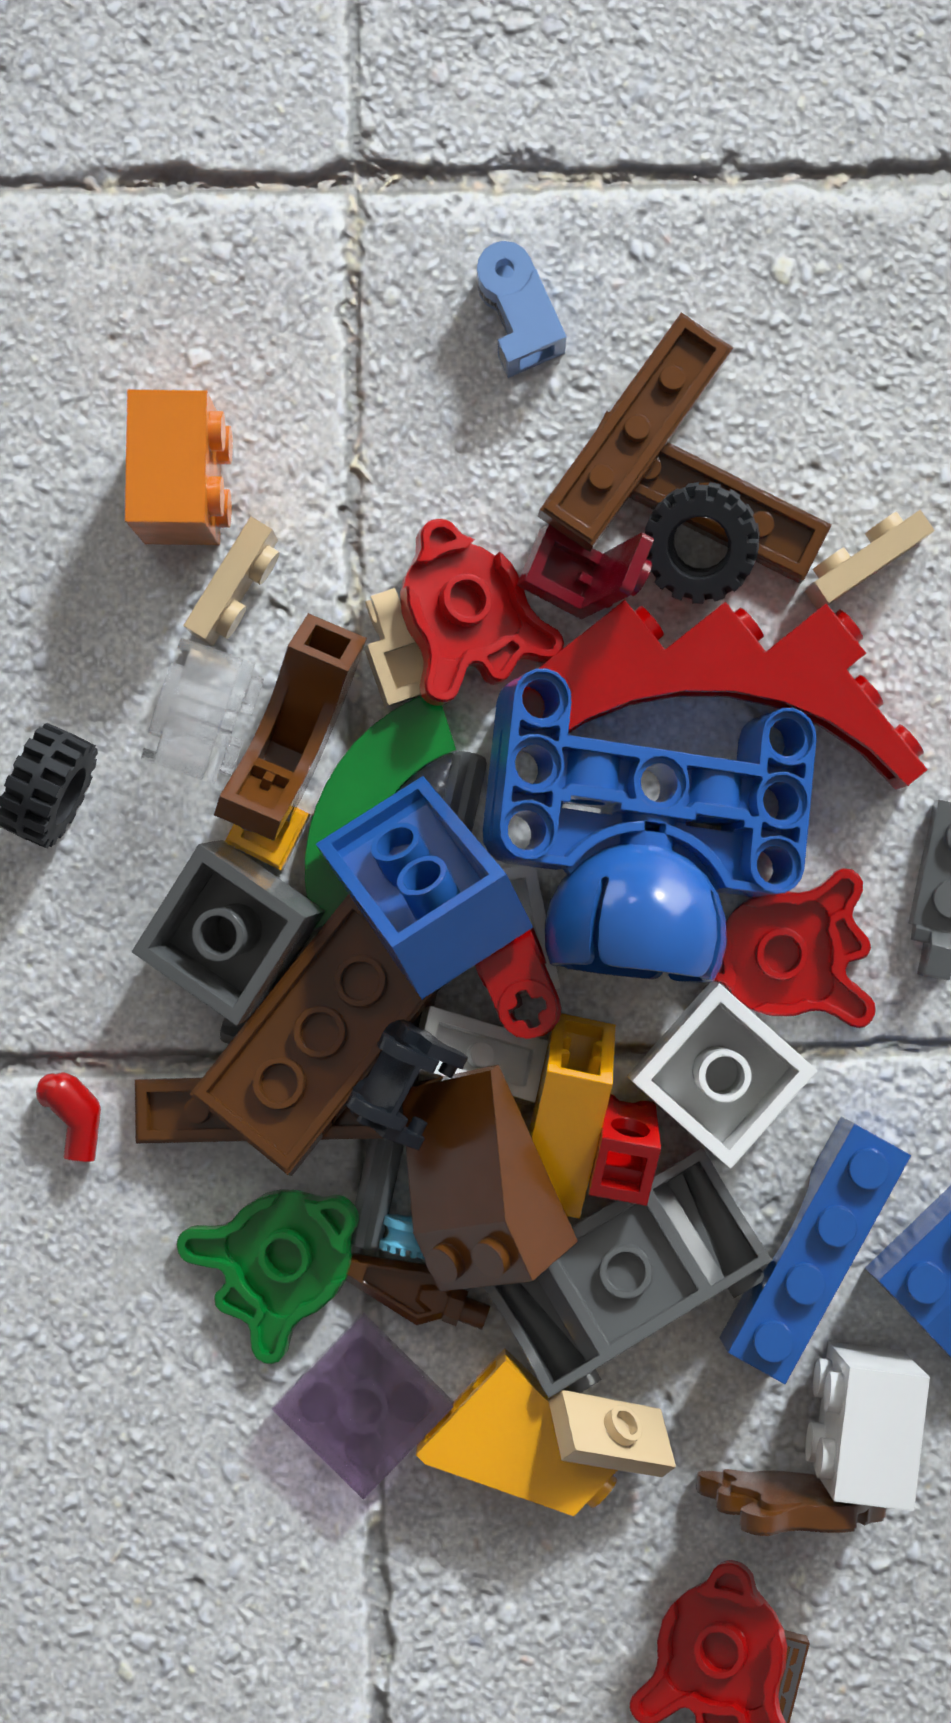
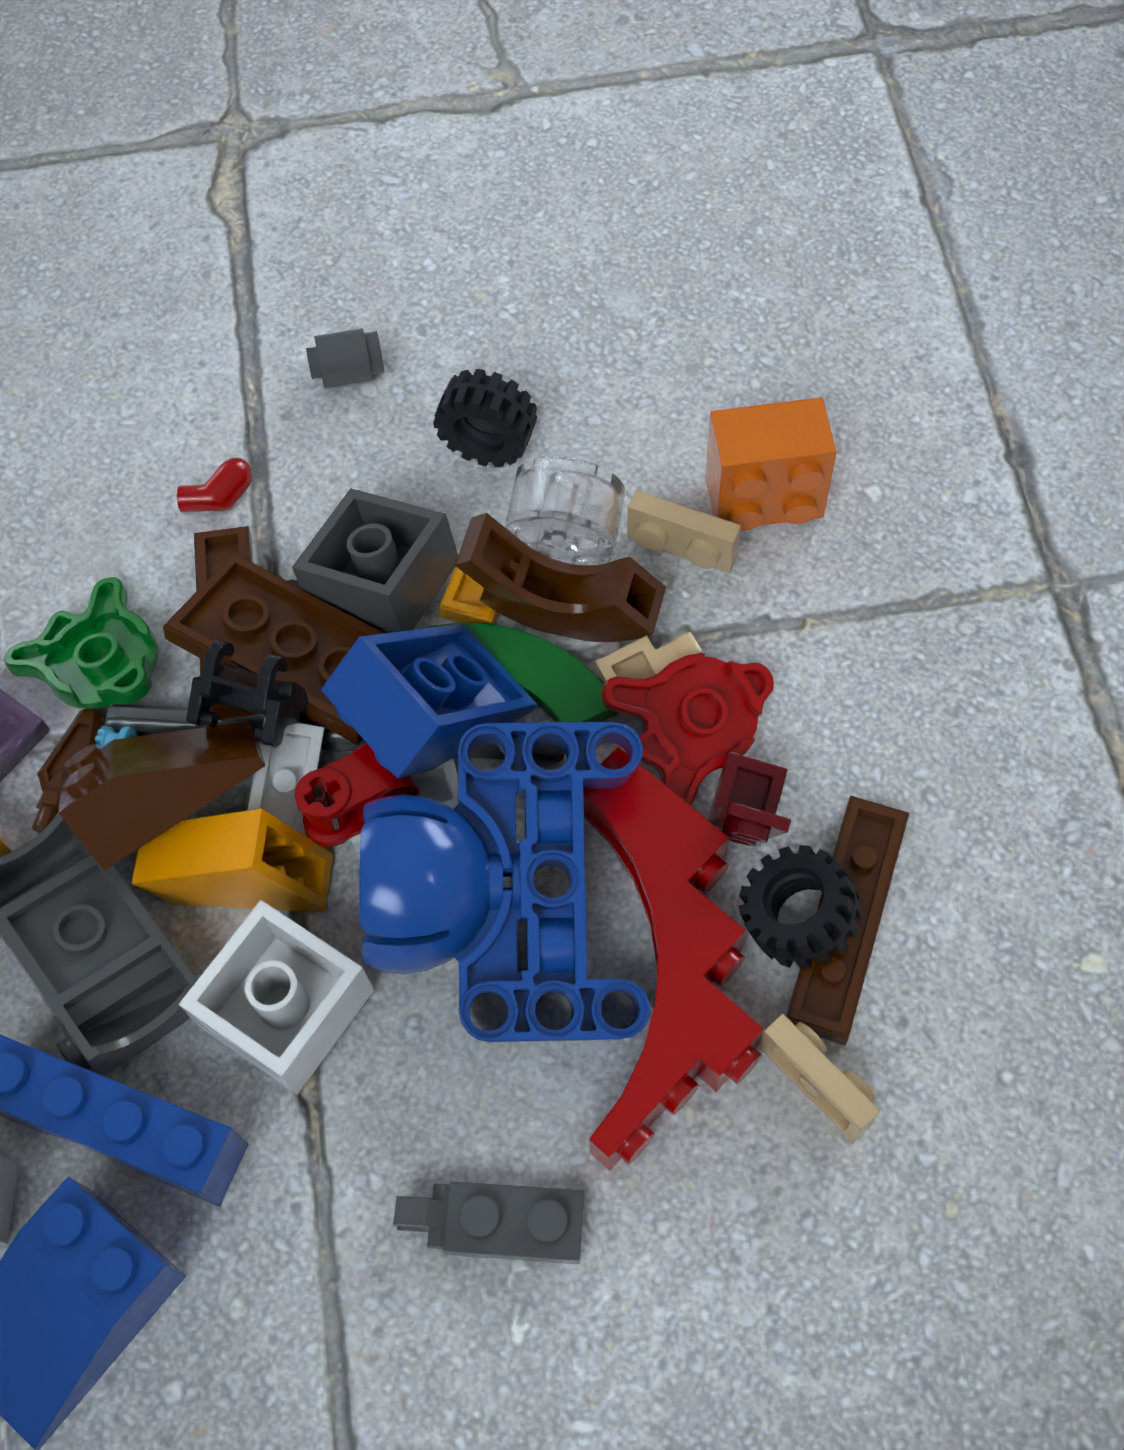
camera: 90 degrees right, 25 degrees down
(514, 289) = (985, 725): medium blue leg -> none
(626, 1152) = (194, 907): red leg -> none
(635, 432) = (896, 836): reddish brown tile -> none
(793, 950) = (410, 1067): red tile -> none

